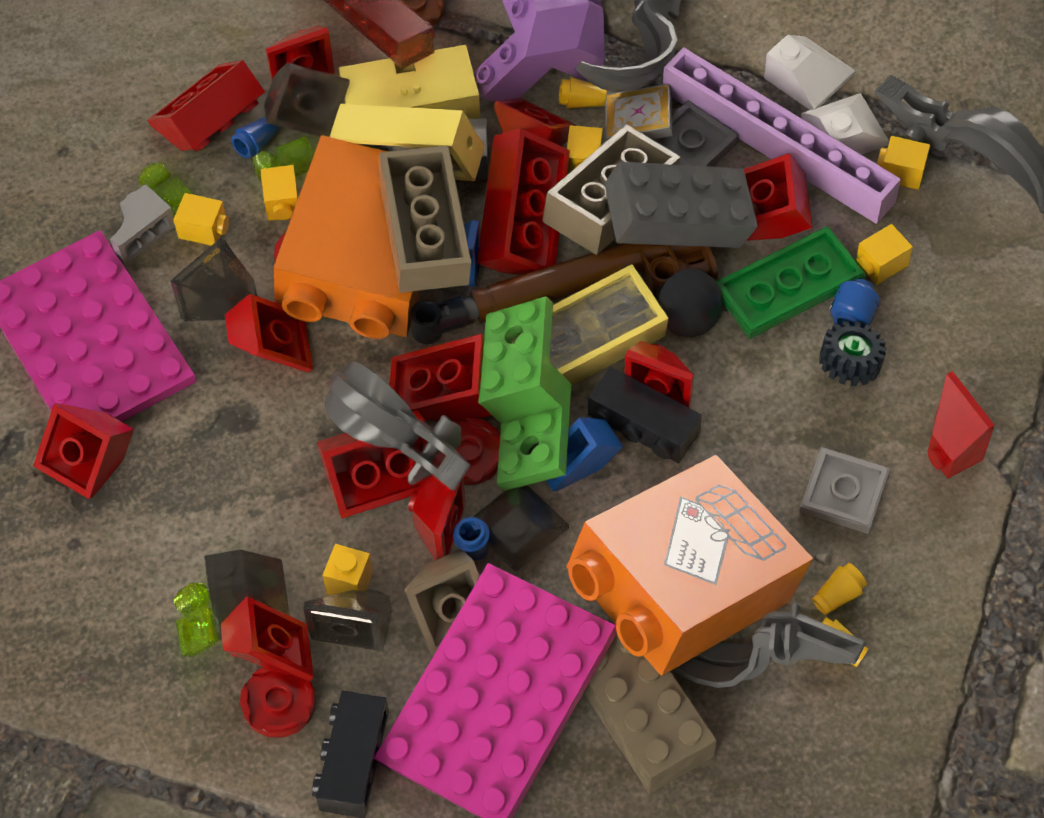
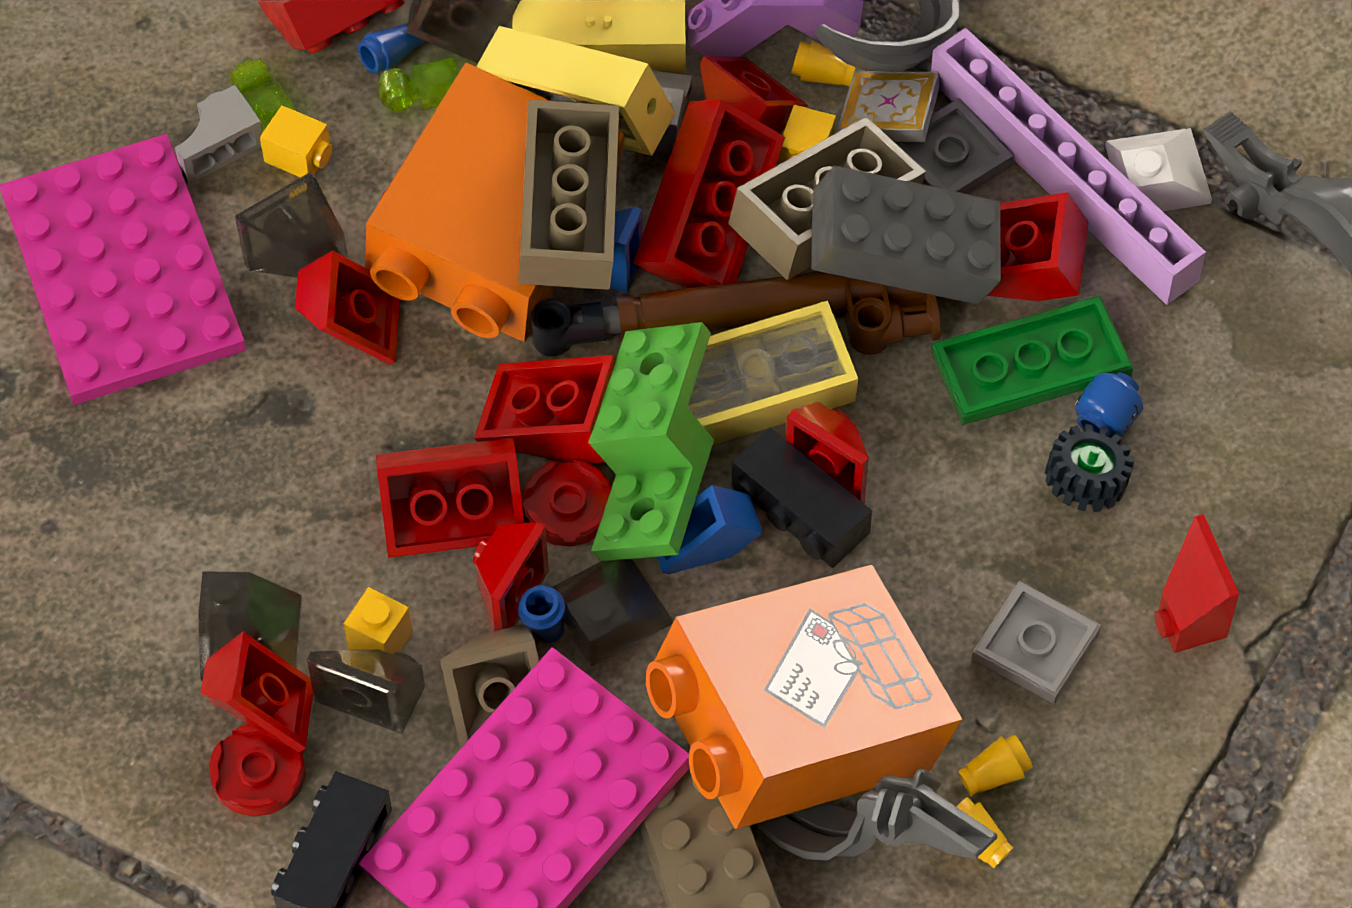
camera: 10 degrees right, 0 degrees up
(82, 447) = (84, 407): red slope -> none
(197, 627) = (177, 658): clear neon green plate -> none
(279, 192) = (402, 123): yellow brick -> none
(377, 415) = (454, 435): dark grey piece -> none
(690, 302) = (894, 364): black dish -> none
(805, 71) = (1125, 85): white slope -> none
(884, 254) = (1163, 346): yellow brick -> none
(905, 160) = (1222, 229): yellow brick -> none

